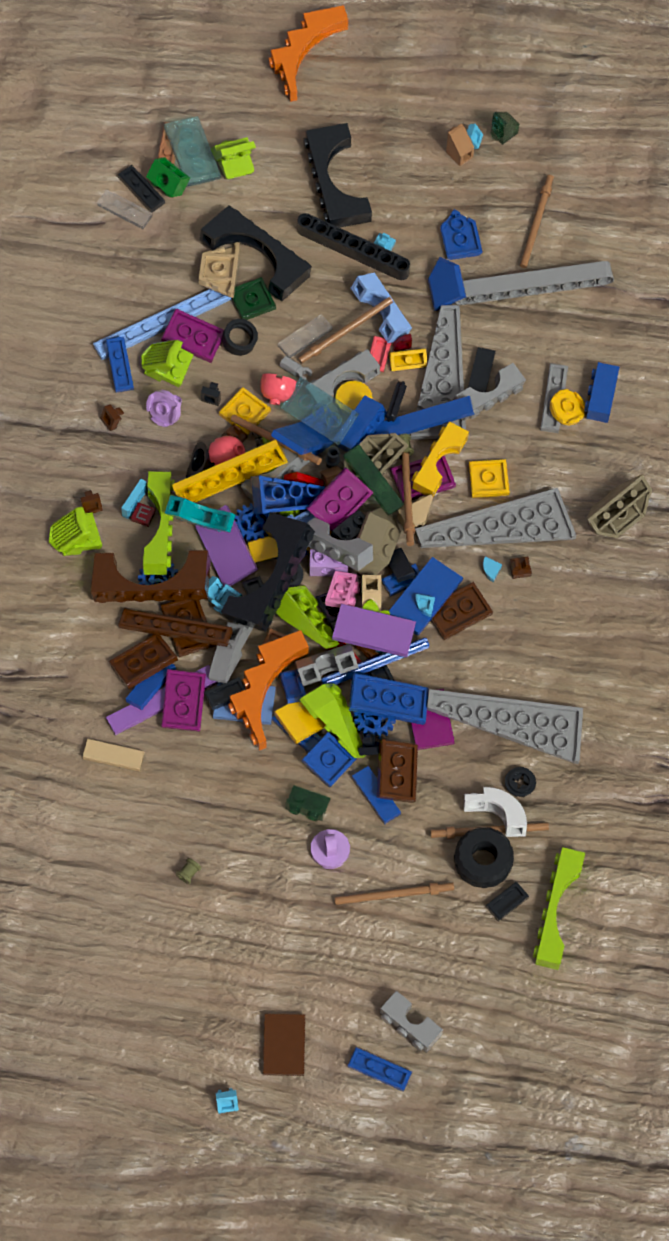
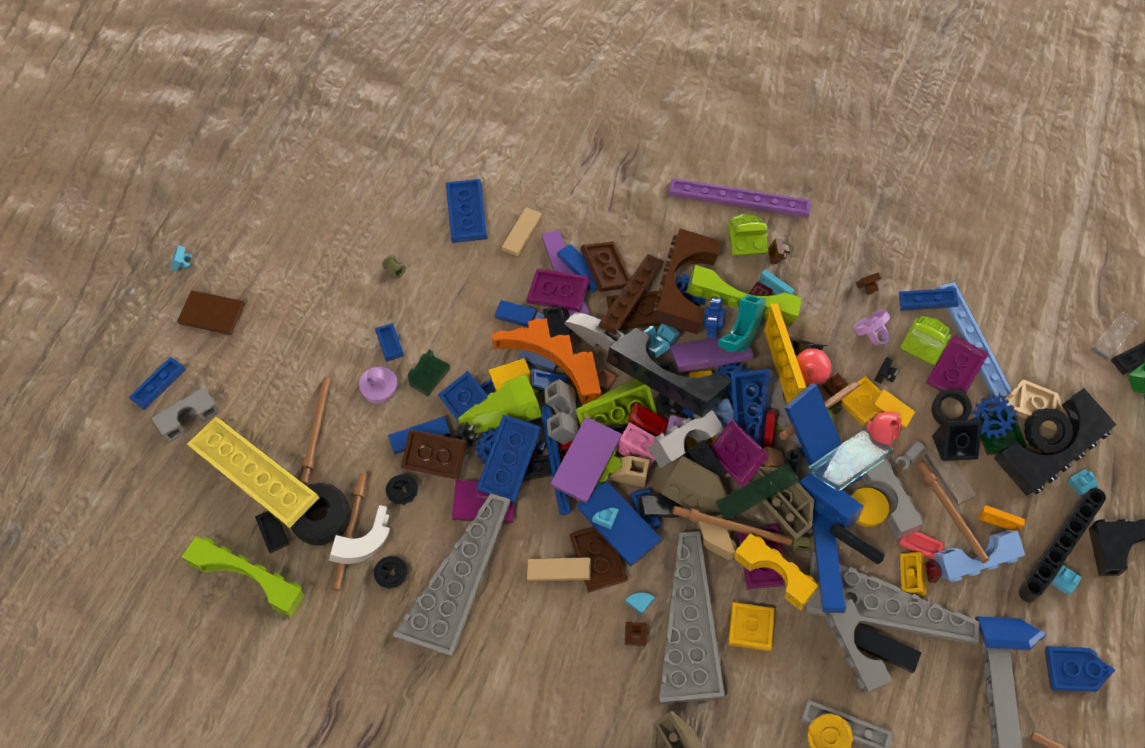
camera: 105 degrees right, 5 degrees down
(24, 550) = (740, 197): none -> medium lavender tile
(96, 819) = (466, 211): none -> blue tile
(191, 541) = (714, 318): none -> blue gear
(217, 738) = (514, 313): none -> blue tile
(240, 265) = (1063, 435): none -> black tyre
(250, 385) = (888, 403): none -> yellow tile
(254, 299) = (999, 411): none -> blue gear
(274, 329) = (958, 440): none -> black slope
(278, 852) = (389, 342): none -> blue tile
(286, 233) = (1083, 482): none -> medium azure tile
(315, 589) = (647, 420): none -> red tile
(341, 293) = (1001, 519): none -> light orange tile
(431, 788) = (398, 482): none -> black gear
(460, 928) = (253, 472): none -> light yellow plate
(481, 638) = (558, 569): none -> tan tile

